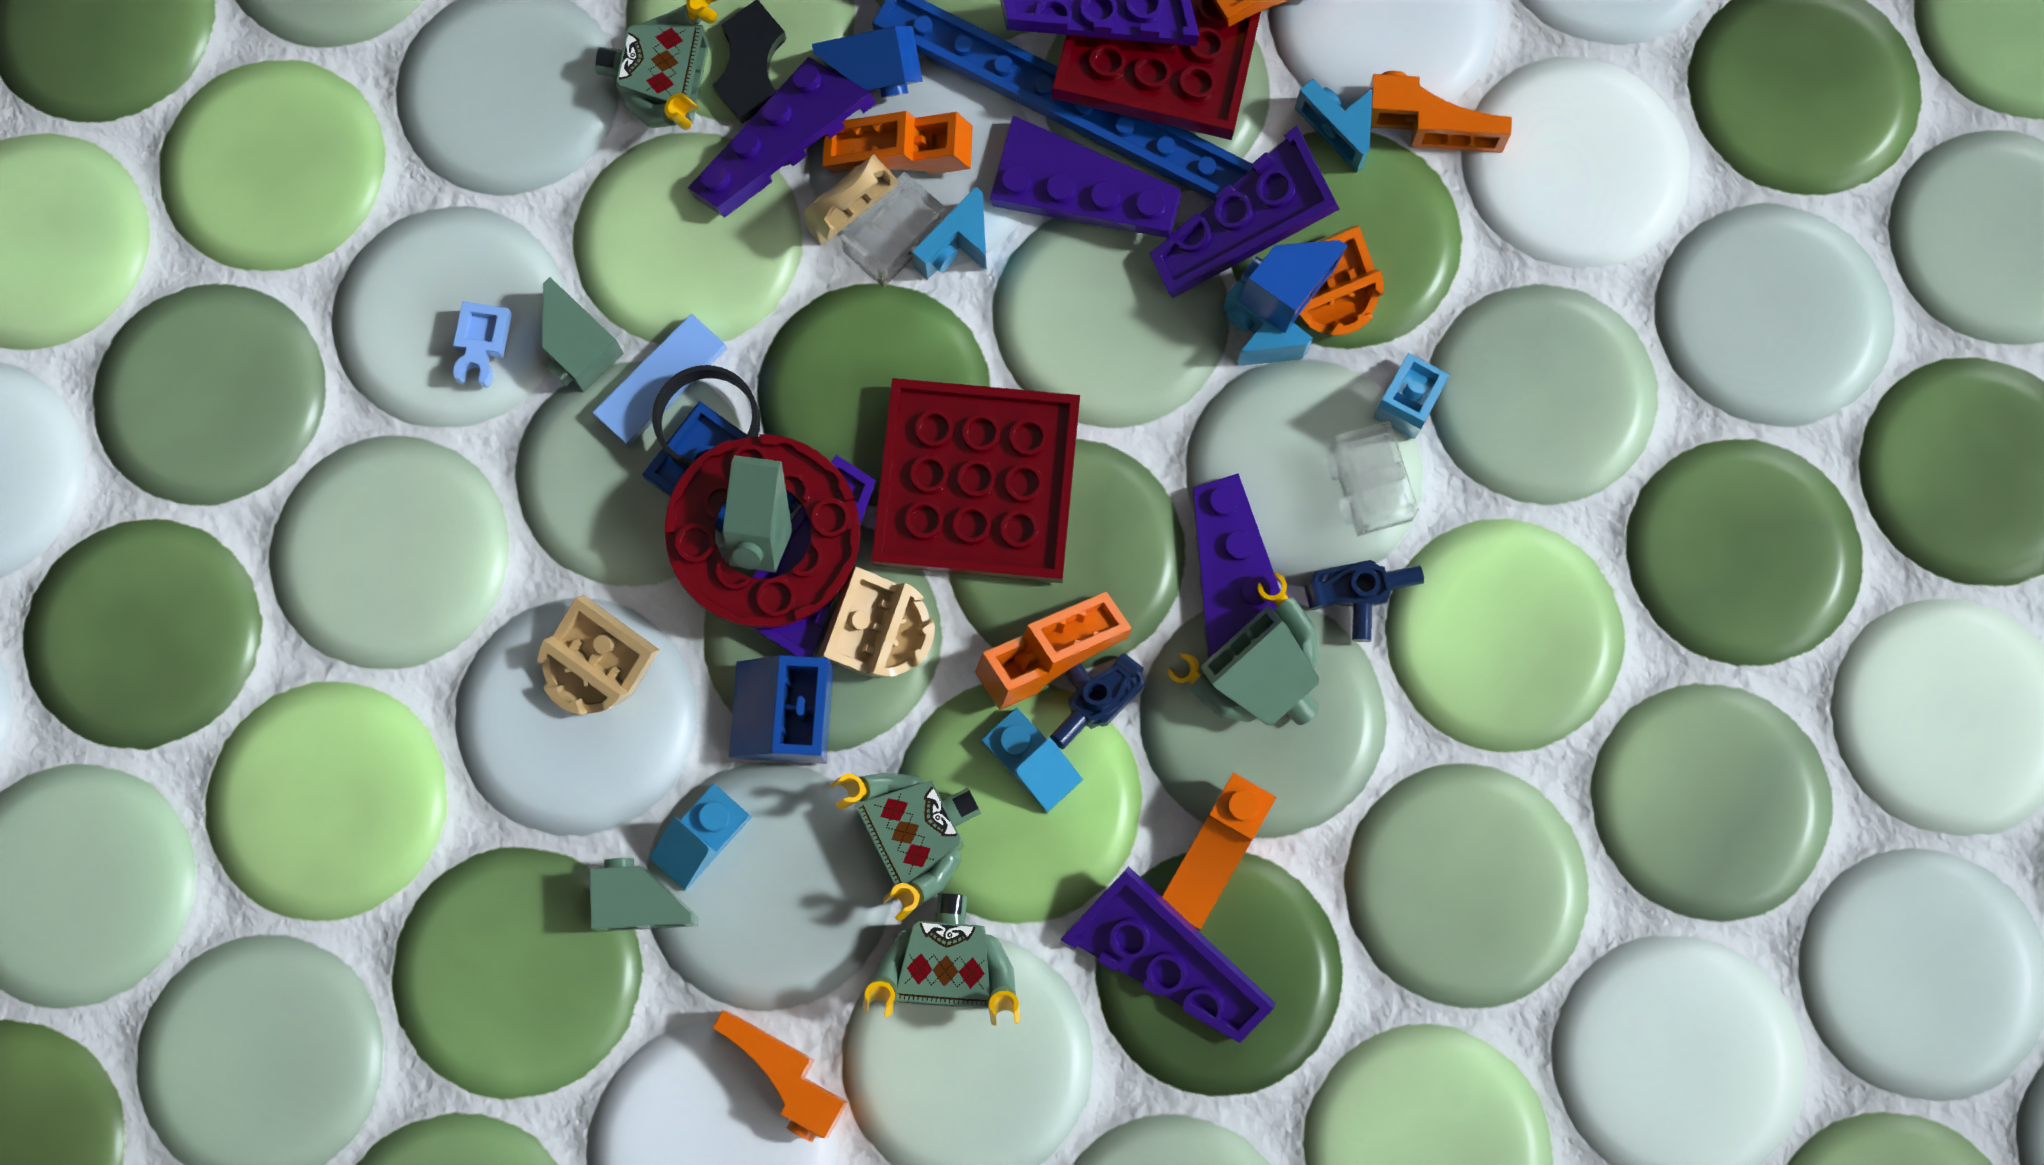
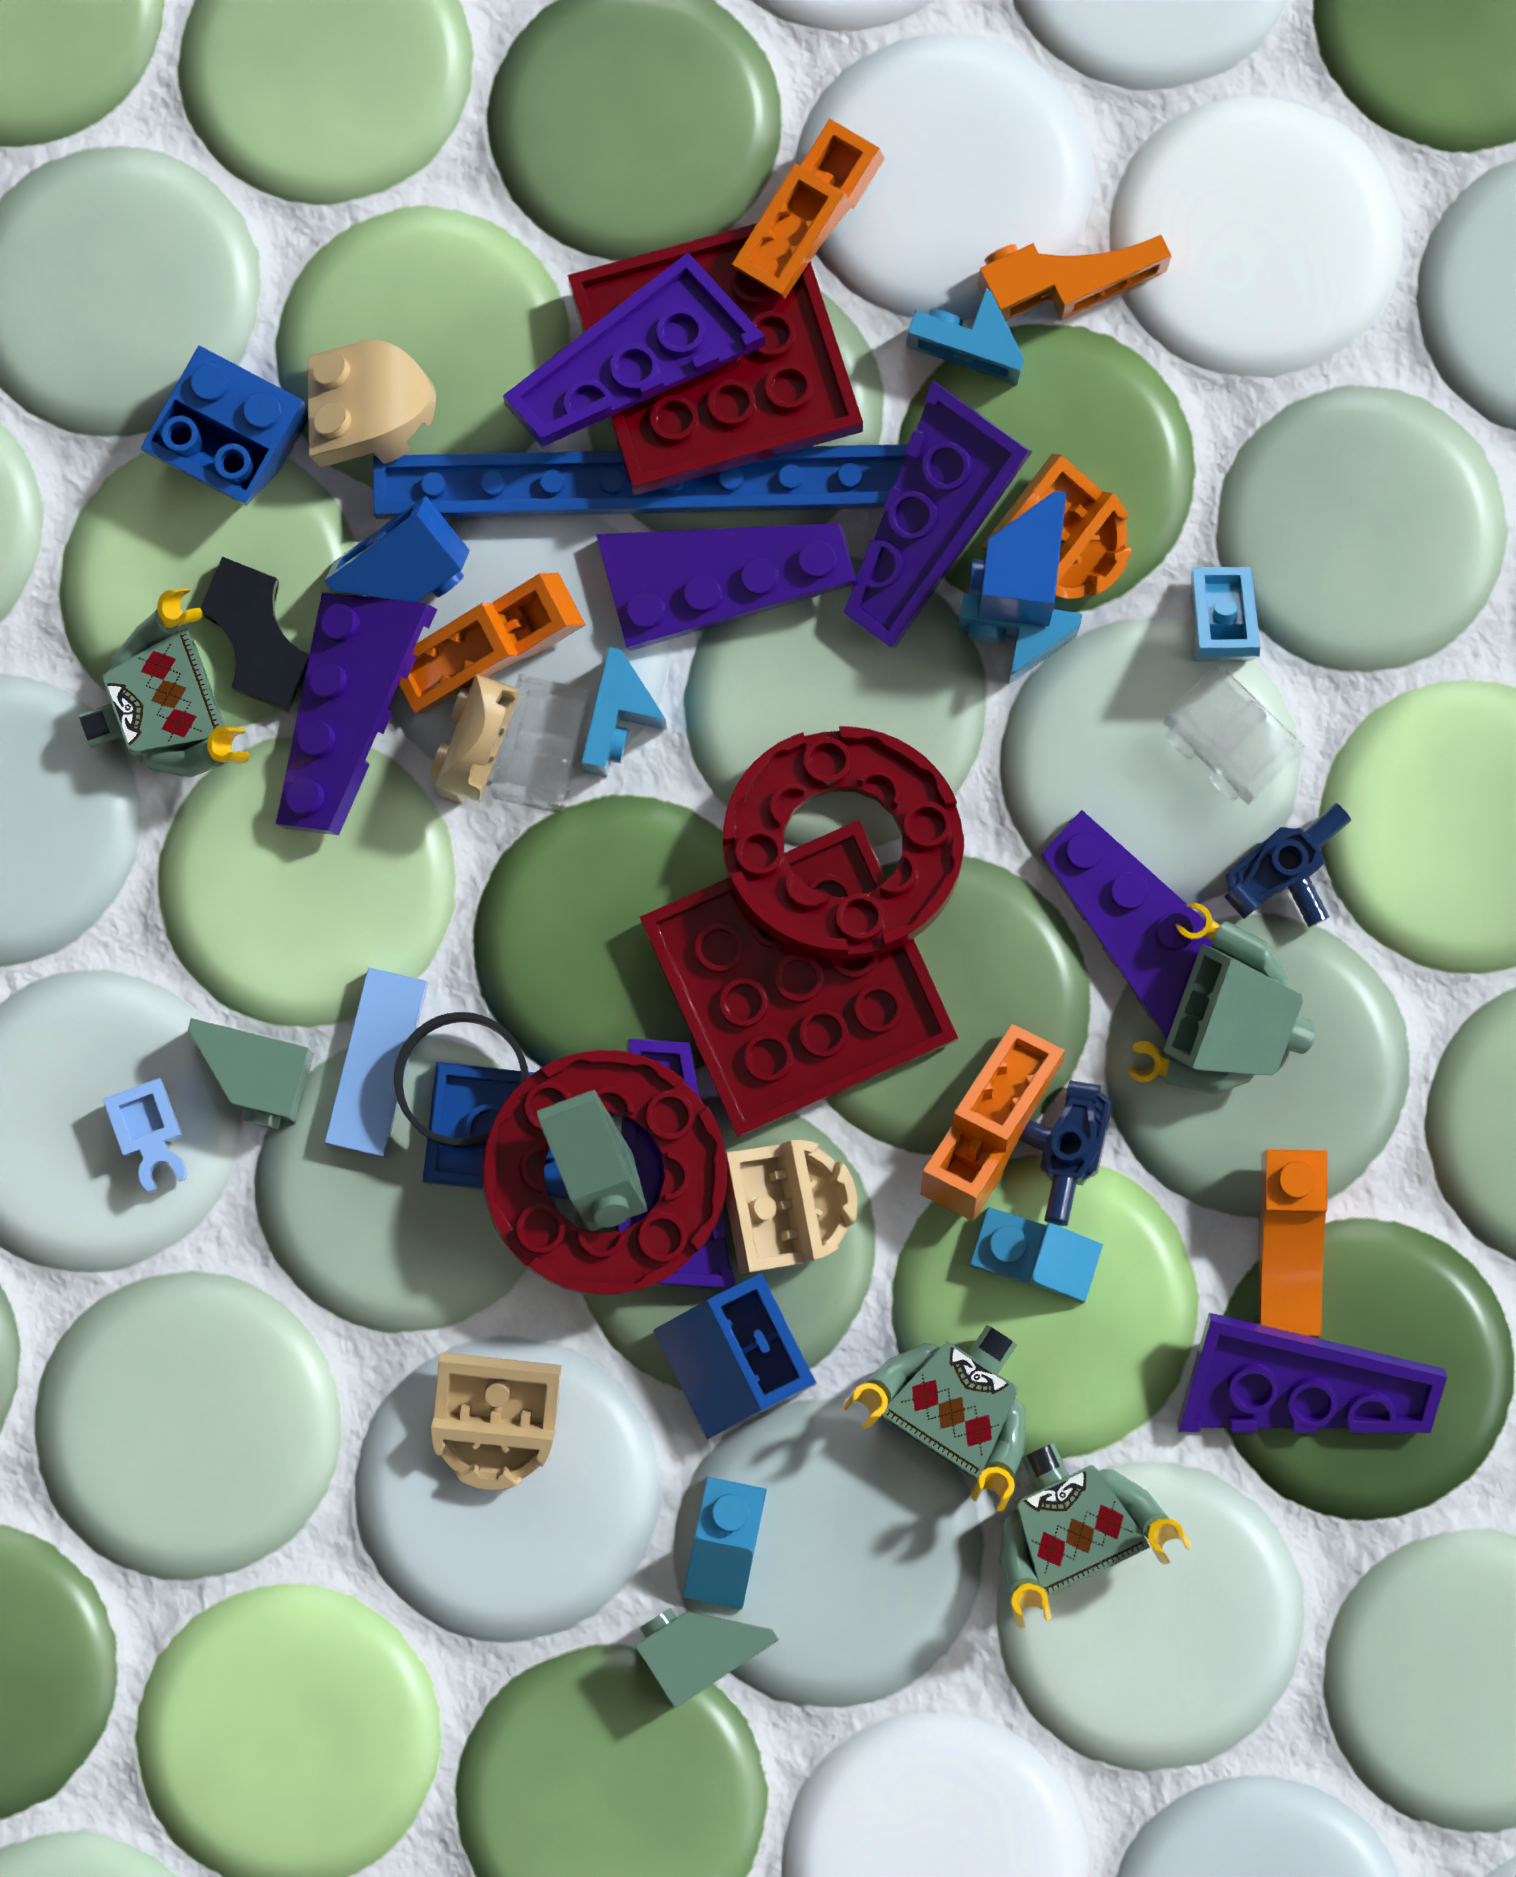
camera: 30 degrees left, 5 degrees up
(807, 1105) = (1014, 1759): orange slope -> none
(1063, 342) = (843, 762): none -> dark red plate

